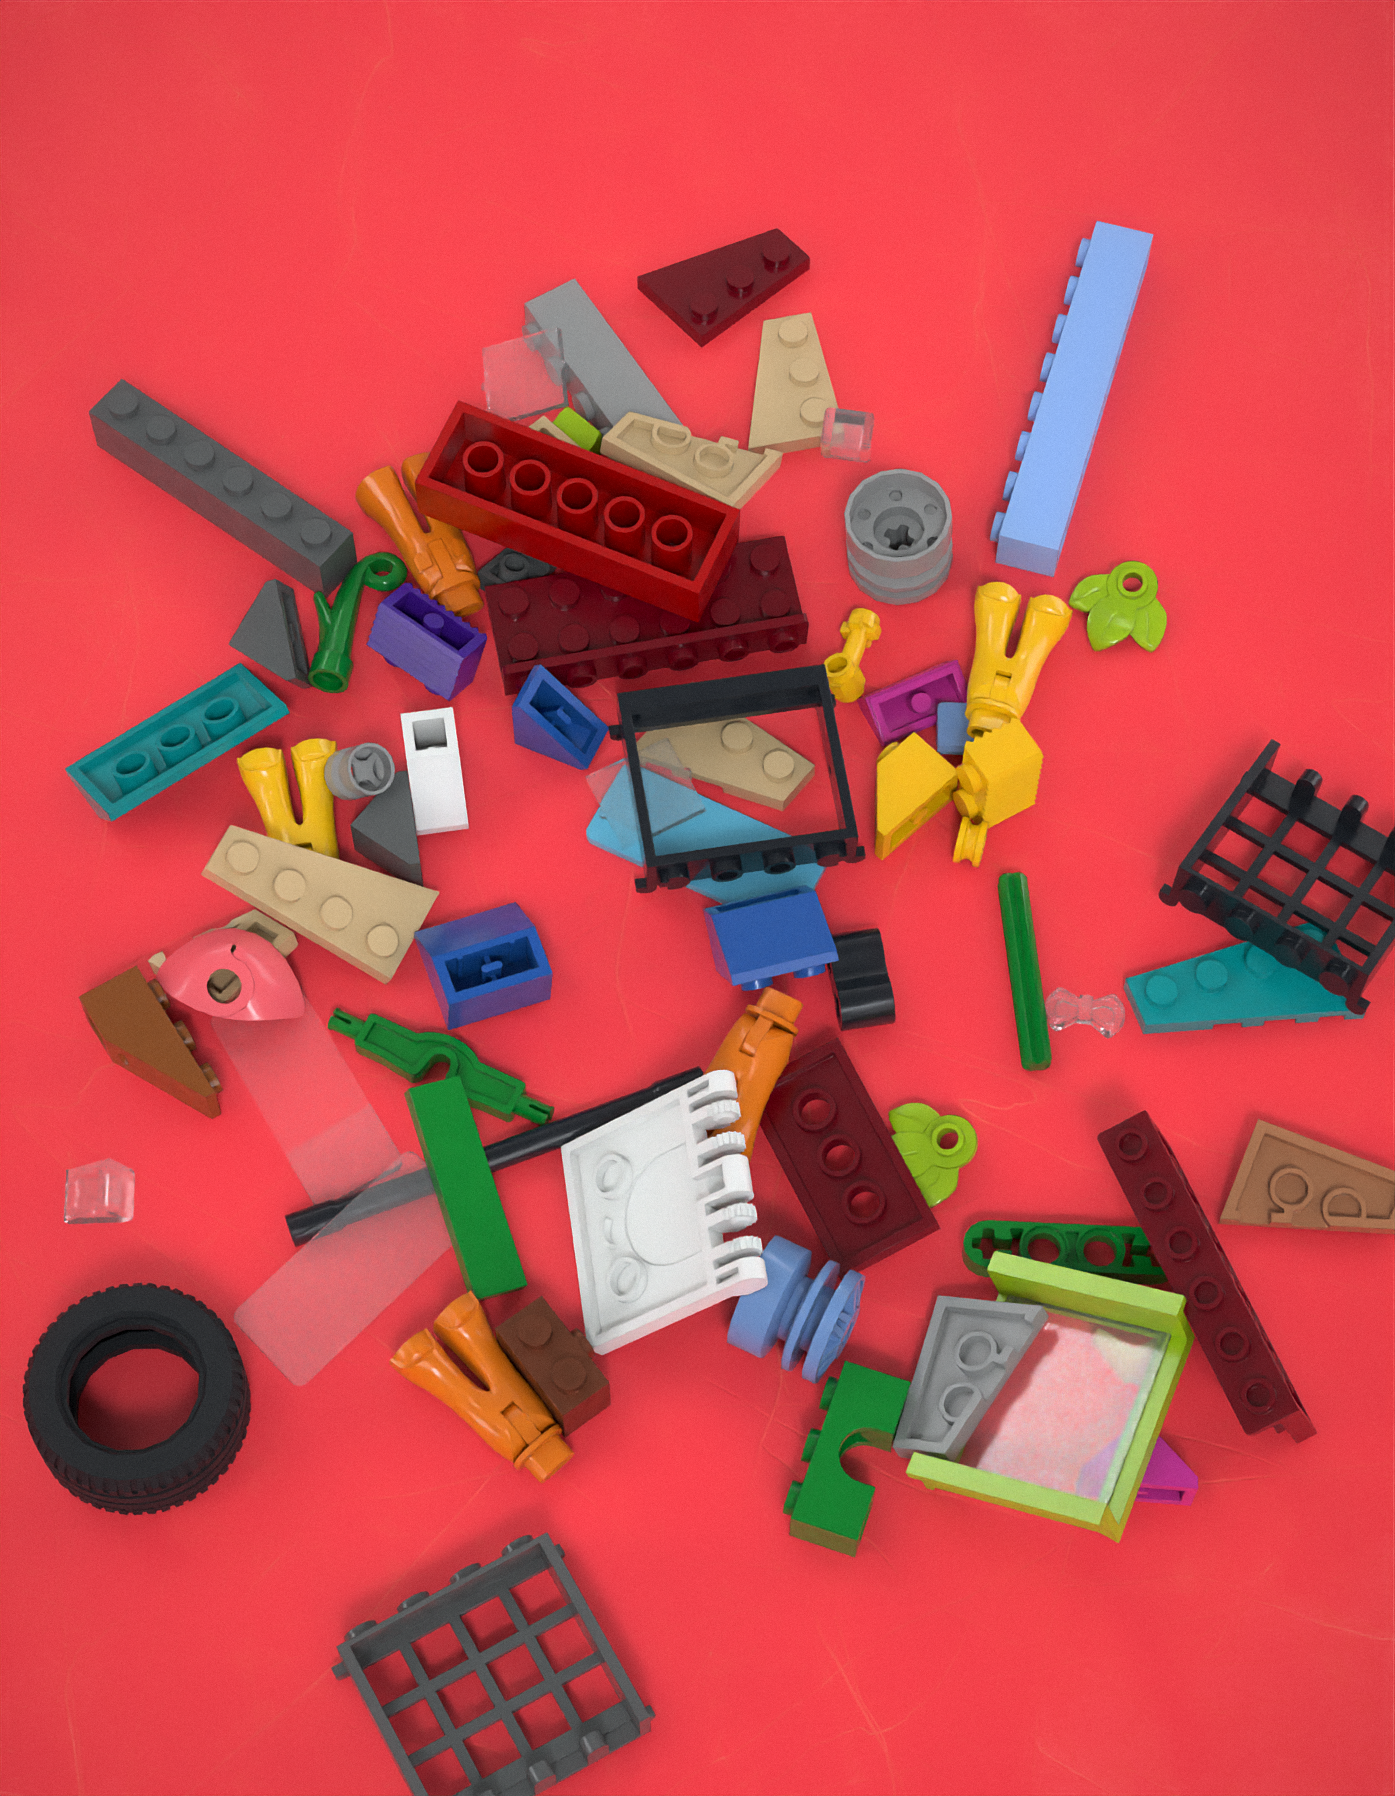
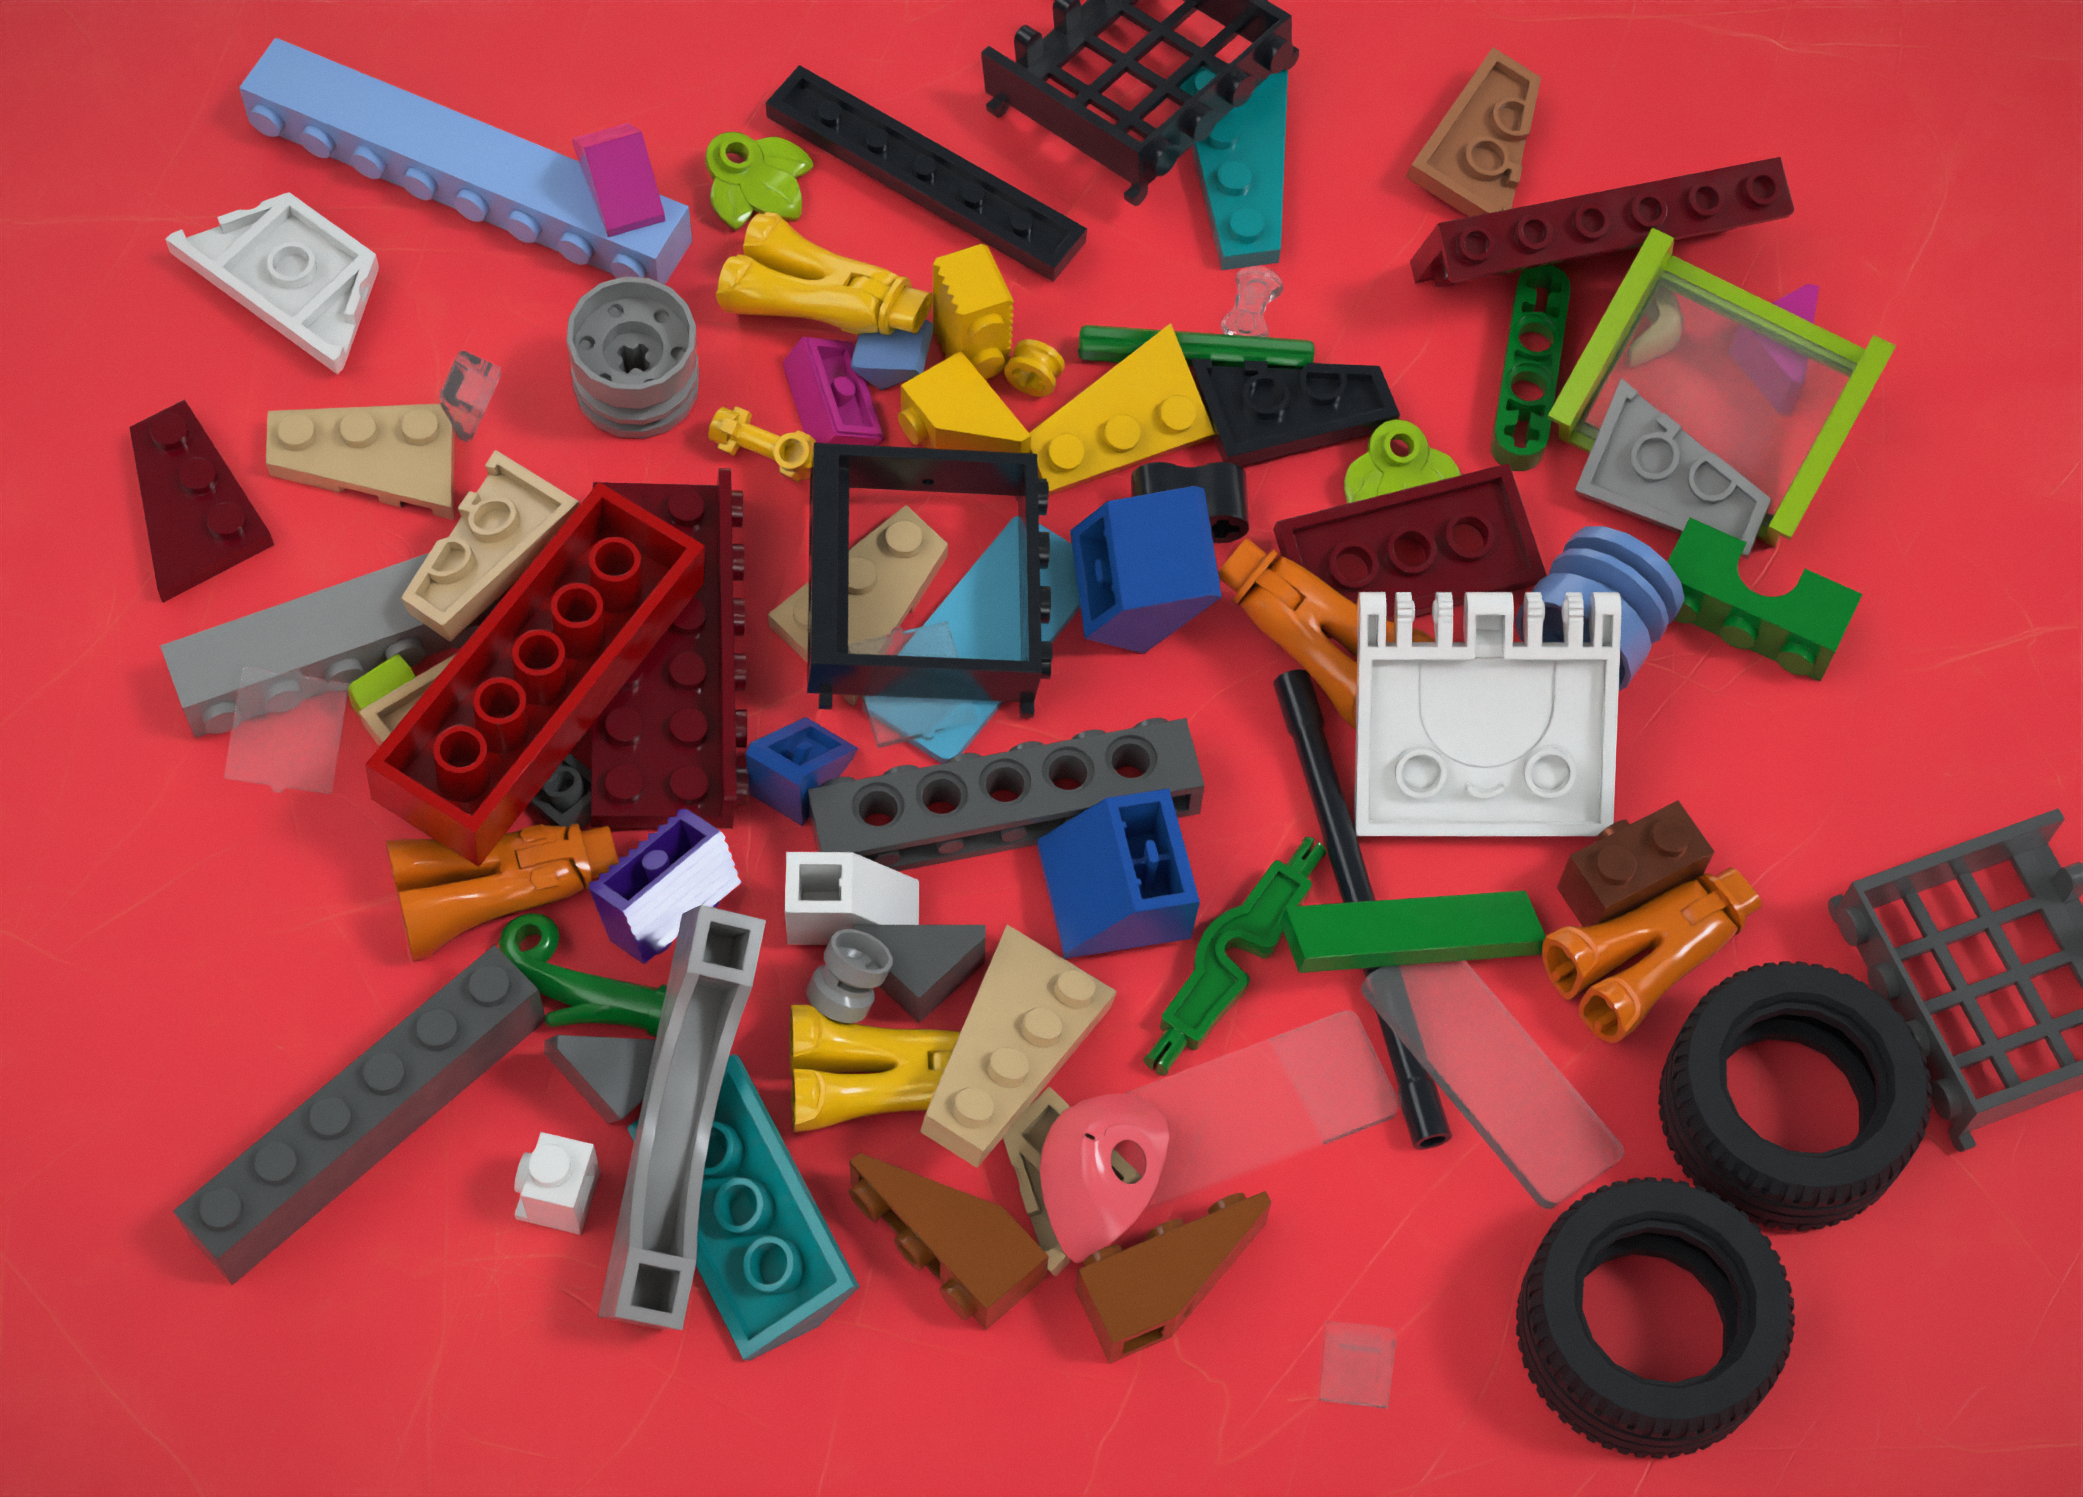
camera: 85 degrees left, 0 degrees up
(162, 894) = (962, 1239): none -> dark orange slope
(180, 607) = (557, 1183): none -> white brick
(281, 669) = (660, 1204): none -> light grey arch
(313, 1430) = (1827, 1015): none -> black tyre
(583, 992) = (988, 826): none -> dark grey brick
(934, 917) = (1124, 418): none -> yellow wing
(942, 301) = (288, 271): none -> white wing
(976, 1049) = (1285, 411): none -> black wing
(1067, 487) = (620, 178): none -> dark pink slope
(1156, 733) = (926, 173): none -> black plate

